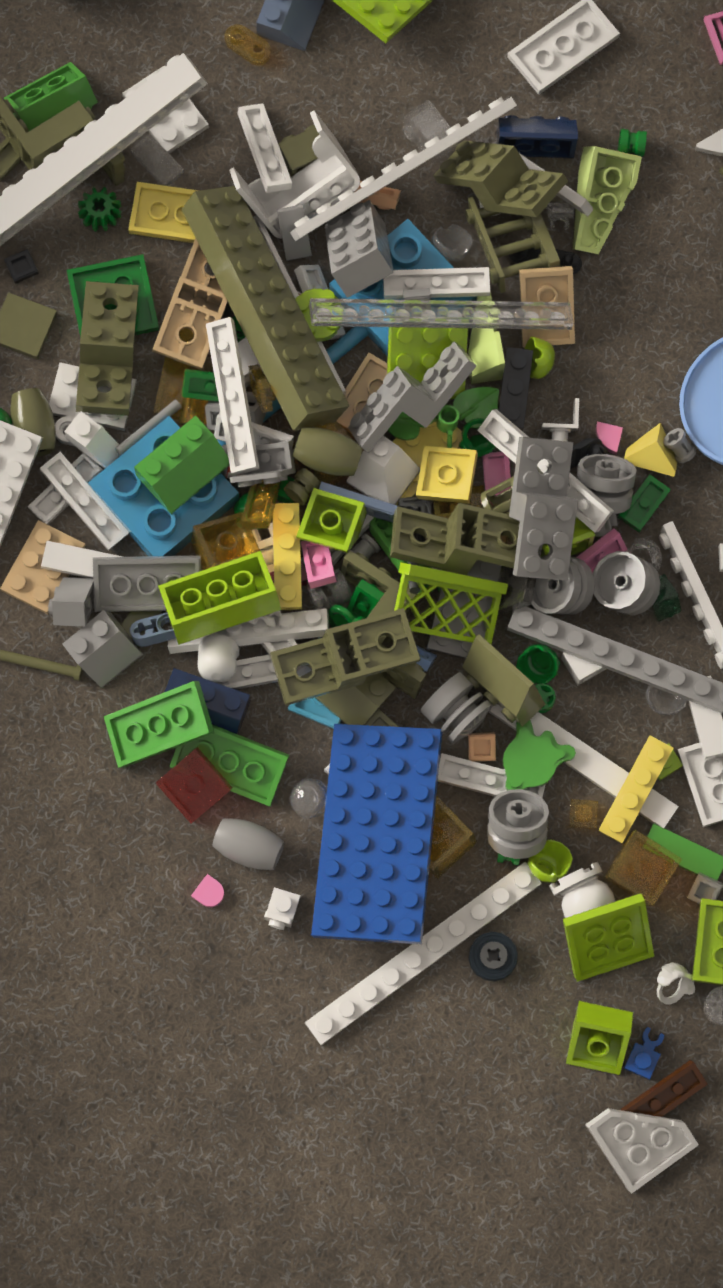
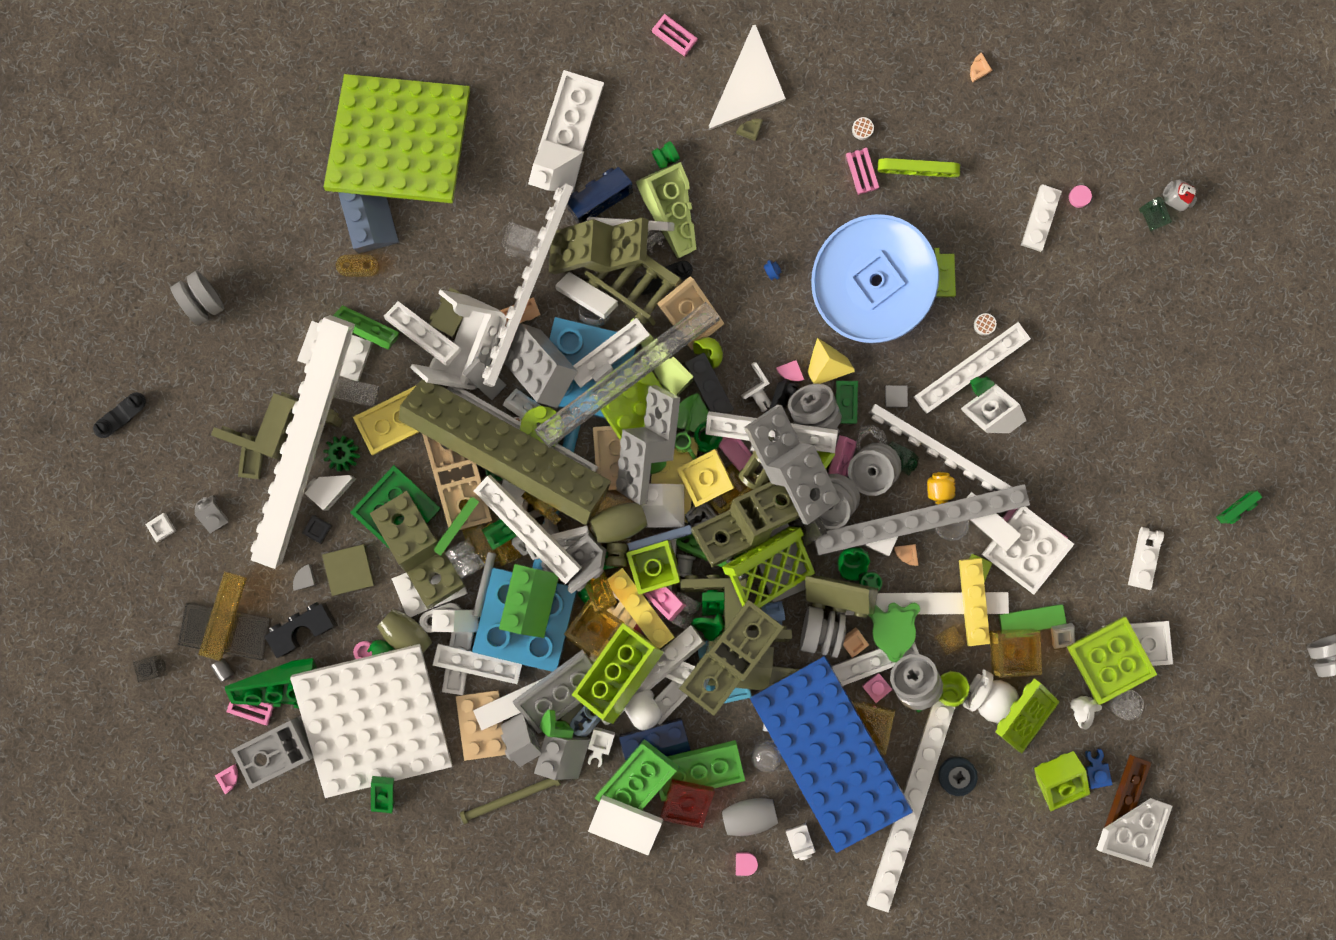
camera: 30 degrees left, 10 degrees up
(51, 95) = (251, 399): bright green slope -> none
(62, 234) = (328, 490): none -> white slope
(112, 610) = (554, 728): none -> bright green tile
(115, 763) = (625, 825): none -> white tile
(147, 385) = (465, 559): none -> clear wheel
(150, 666) = (600, 743): none -> white plate
(164, 344) = (456, 525): none -> bright green tile
(216, 112) = (368, 328): none -> bright green plate
(455, 221) = (586, 295): none -> white tile
(473, 809) = (877, 687): none -> bright pink plate
(513, 76) = (555, 166): none -> white slope
(600, 697) = (907, 554): none -> light nougat tile
(661, 324) = (772, 270): none -> blue plate
(680, 445) = (840, 341): light grey bush -> none
(683, 651) = (941, 487): none -> yellow head
(700, 533) = (896, 396): none -> light grey tile

